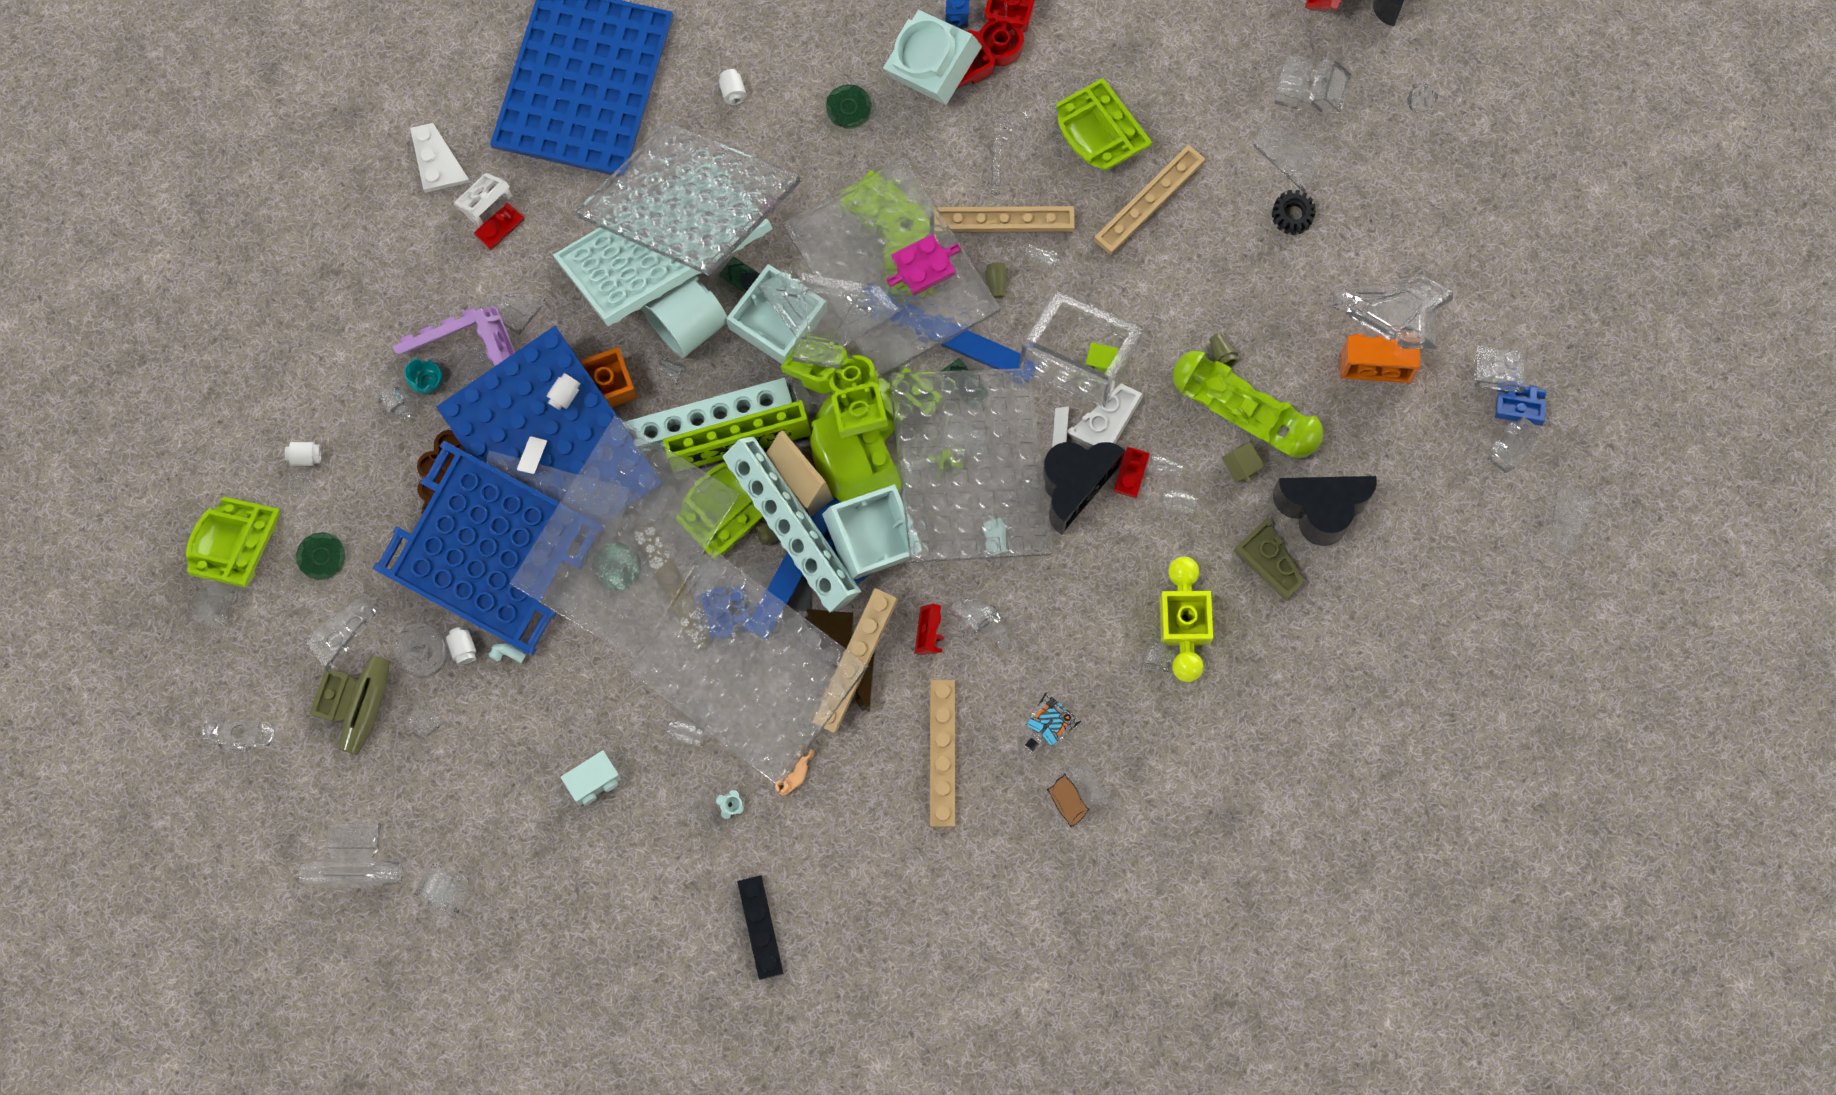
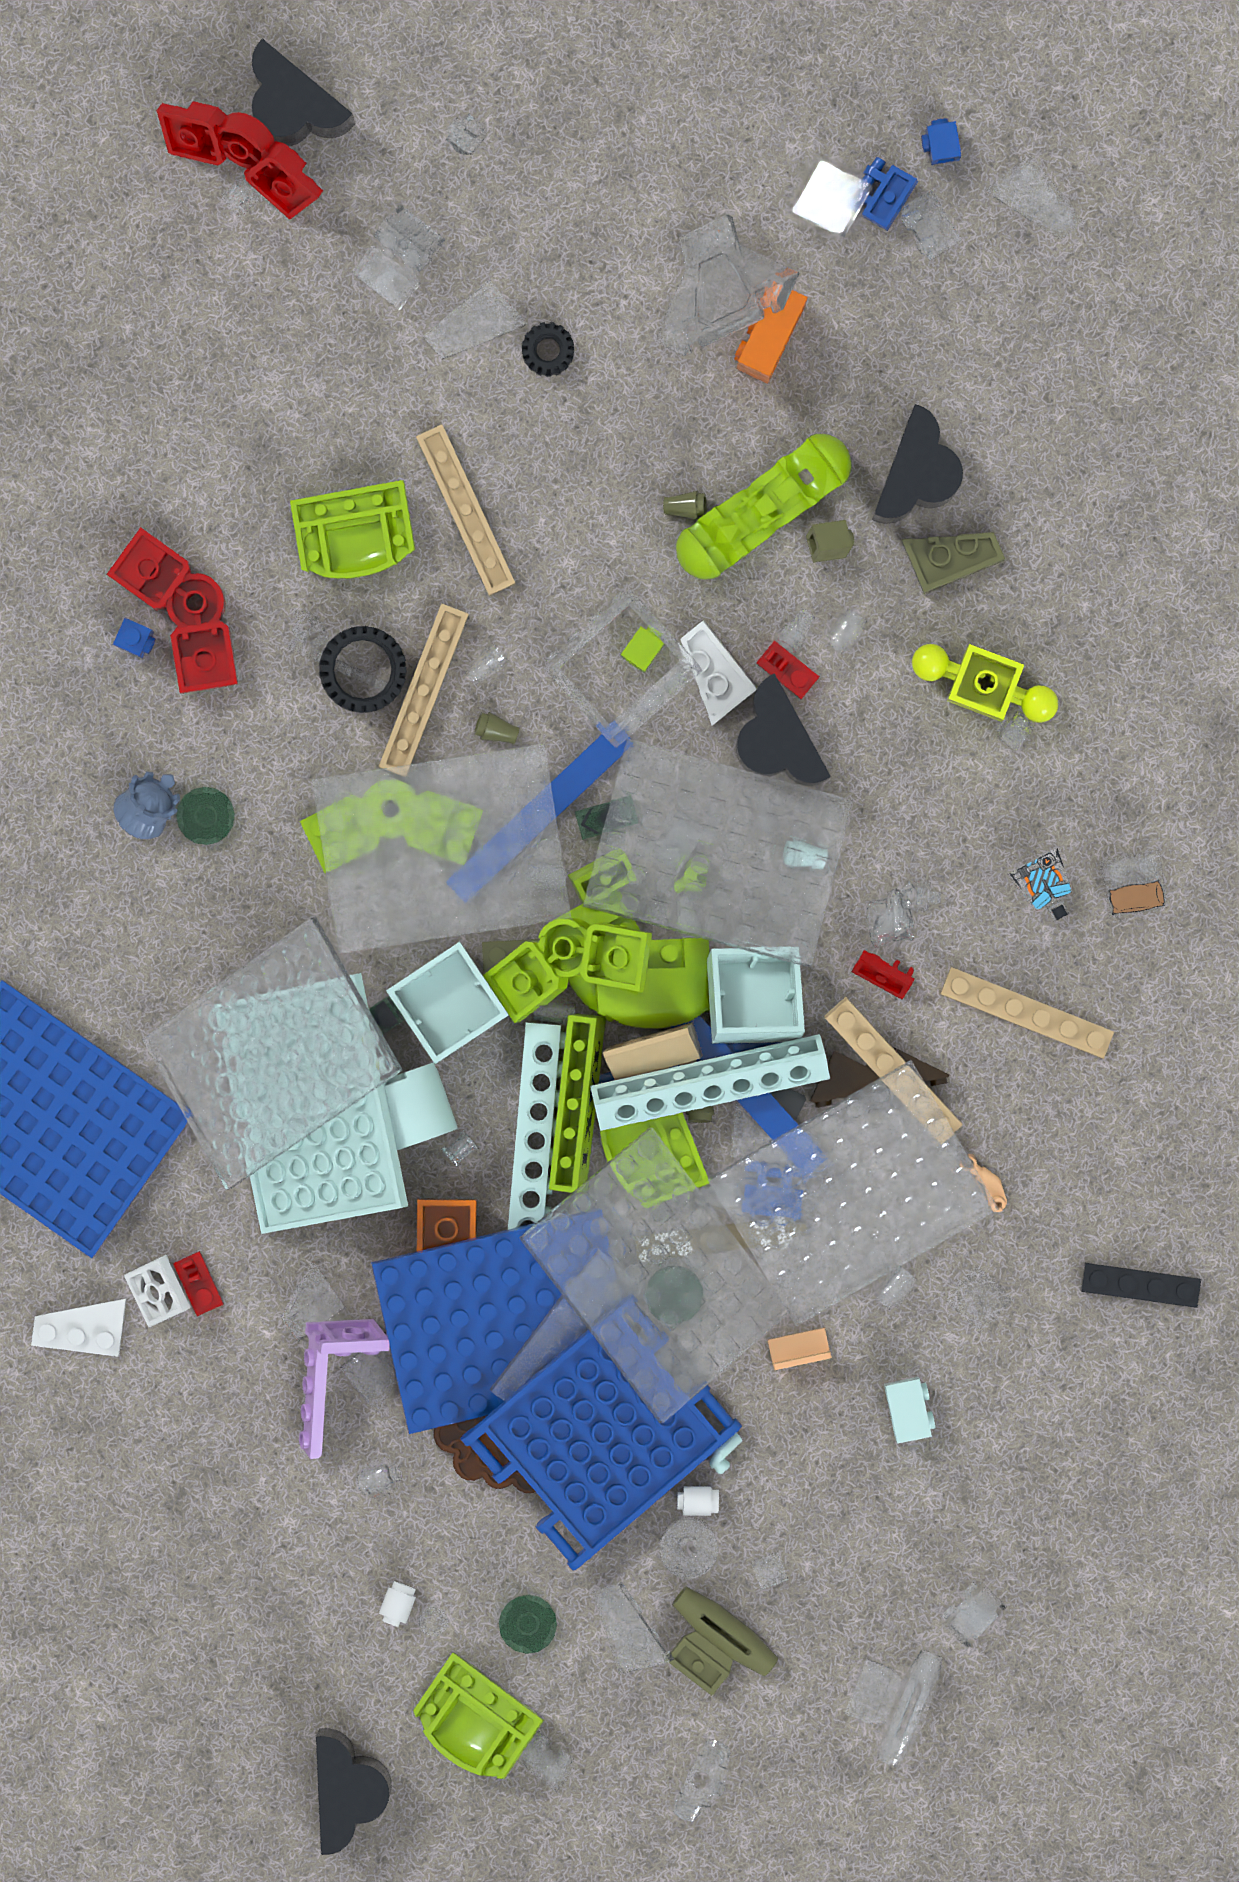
camera: 70 degrees left, 15 degrees up
(144, 463) = (349, 1789): none -> black brick
(418, 370) = (367, 1433): teal hair -> none
(531, 455) = (516, 1345): white sticker -> none
(563, 392) = (459, 1283): white brick -> none
(610, 678) = (799, 1348): none -> light nougat panel
(732, 87) = (128, 945): white brick -> none
(736, 808) = (999, 1262): light aqua plate -> none
(825, 313) = (476, 948): clear plate -> none
(838, 61) = (146, 806): none -> sand blue hair
(923, 264) = (458, 812): dark pink plate -> none
(931, 56) = (192, 695): light aqua container -> none
(1014, 145) = (397, 663): none -> black tyre
(1060, 425) = (702, 728): white sticker -> none
(1579, 431) = (941, 141): none -> blue brick

